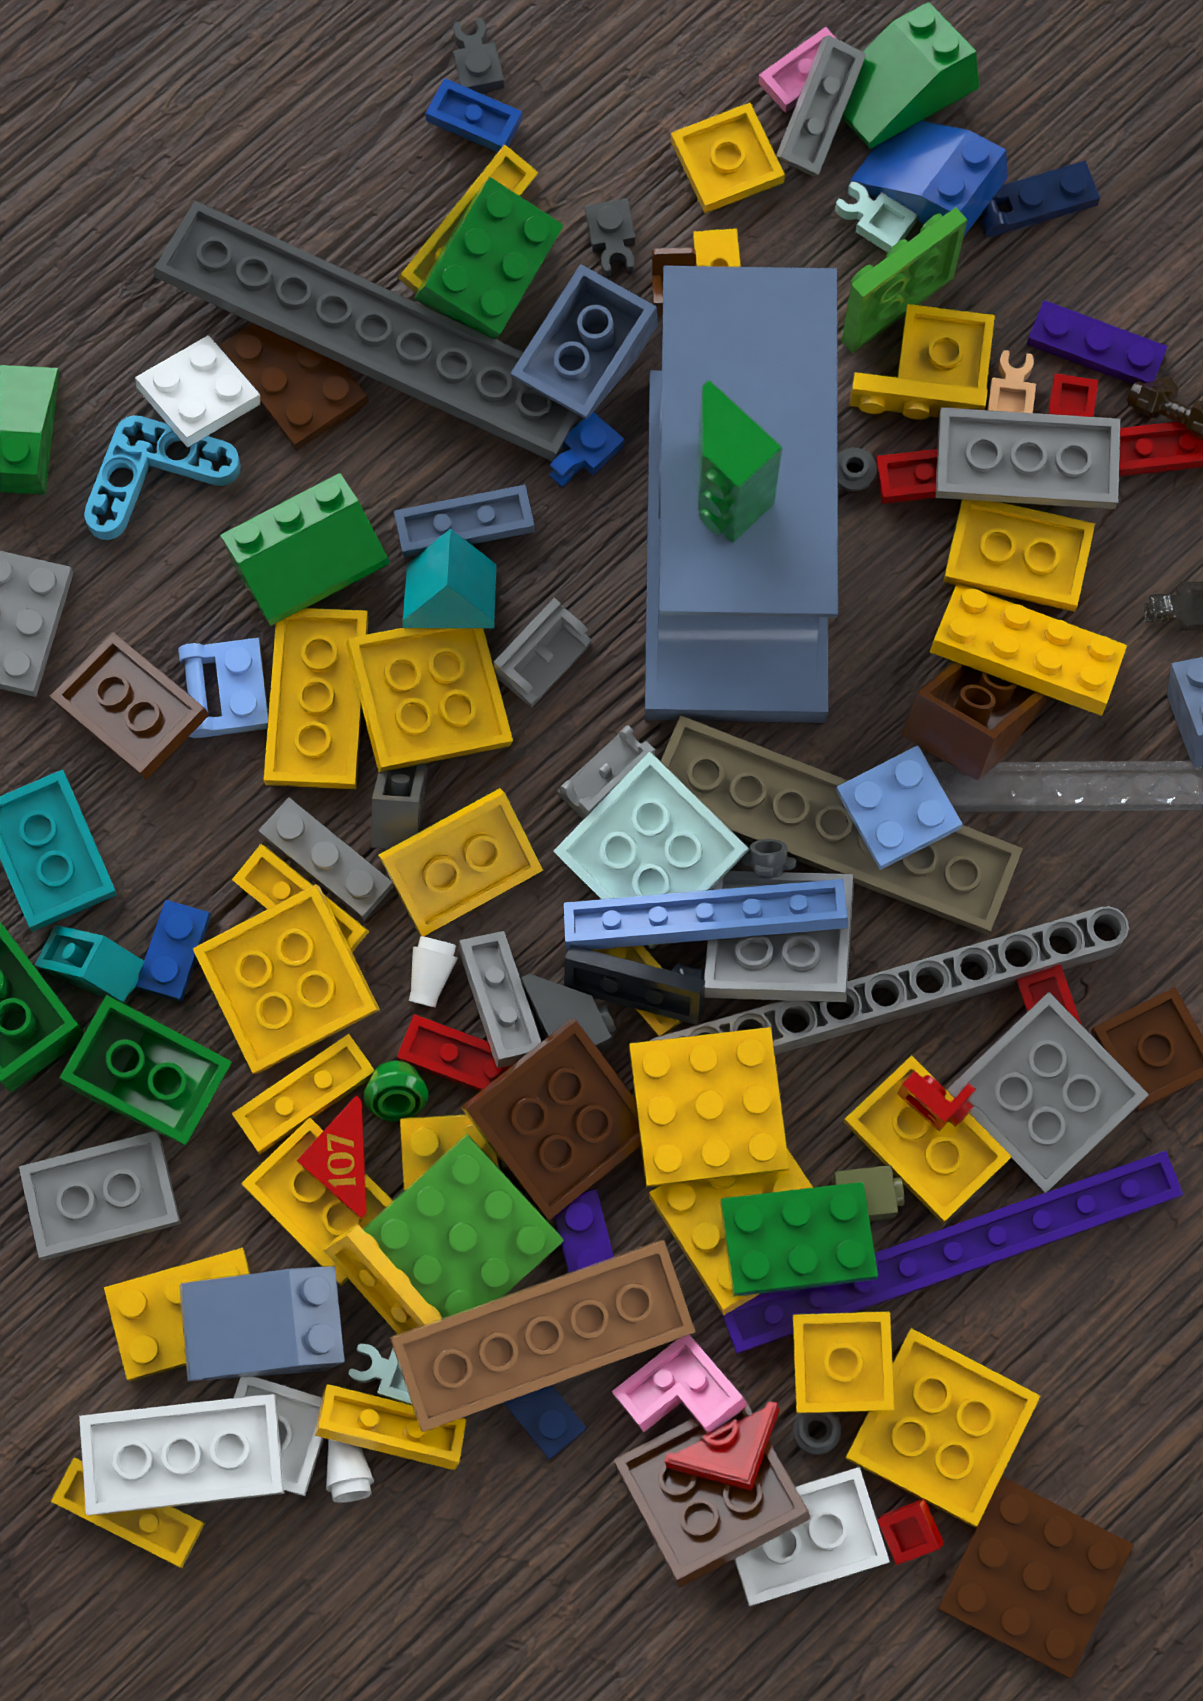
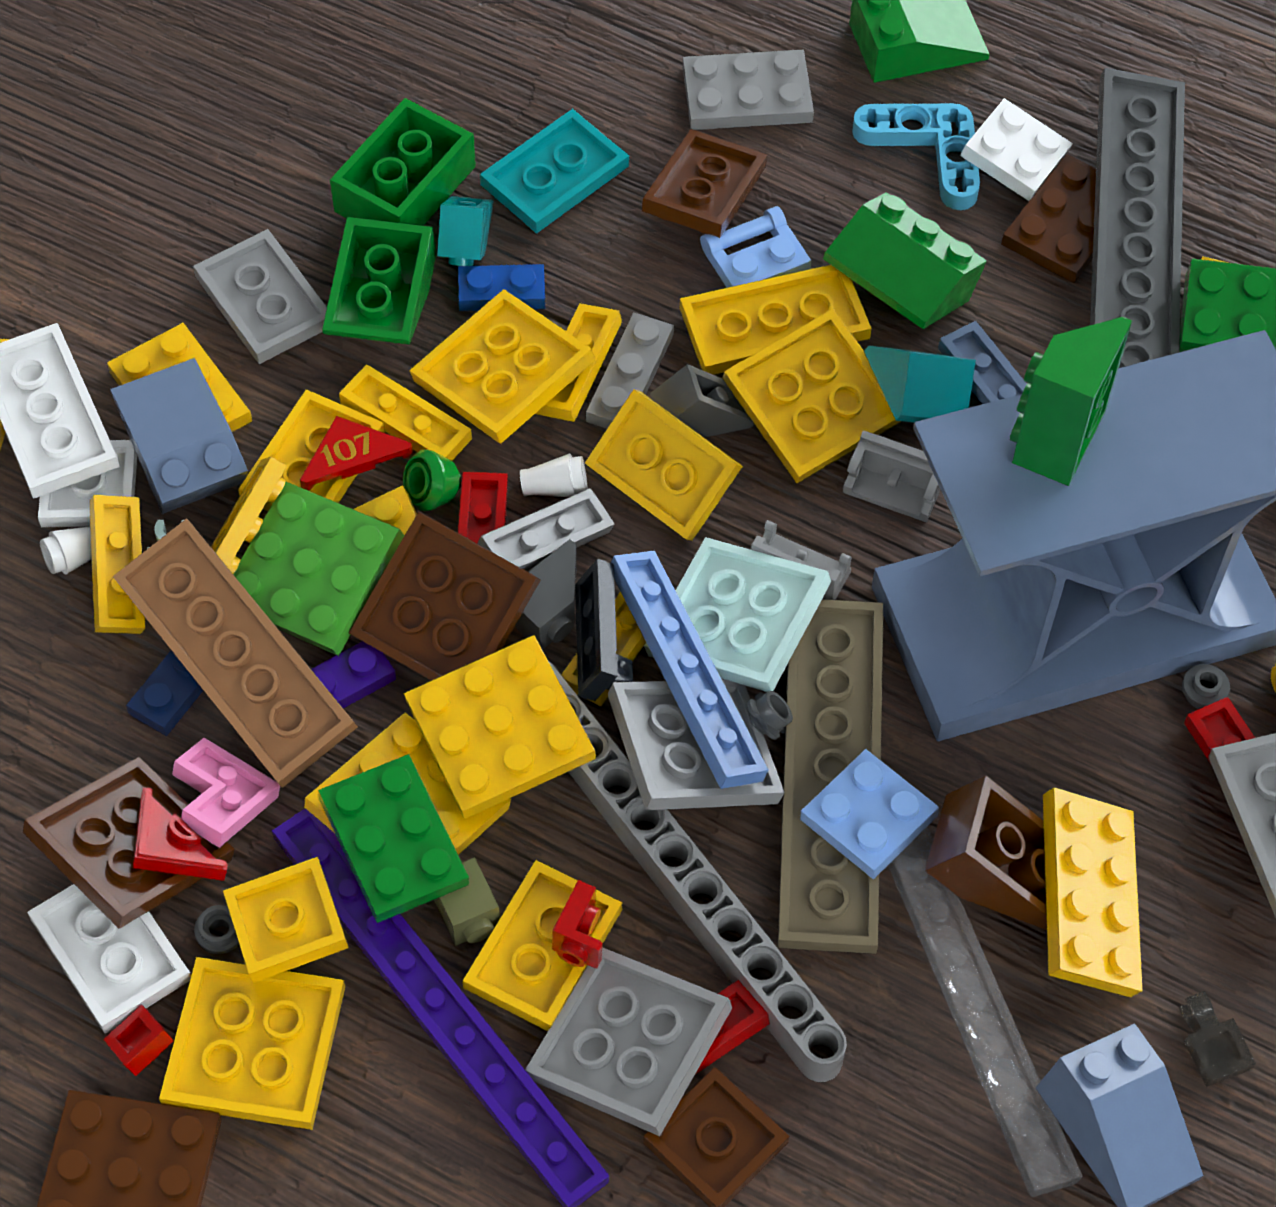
camera: 70 degrees right, 15 degrees down
(1019, 553) = (1192, 860): yellow plate -> none

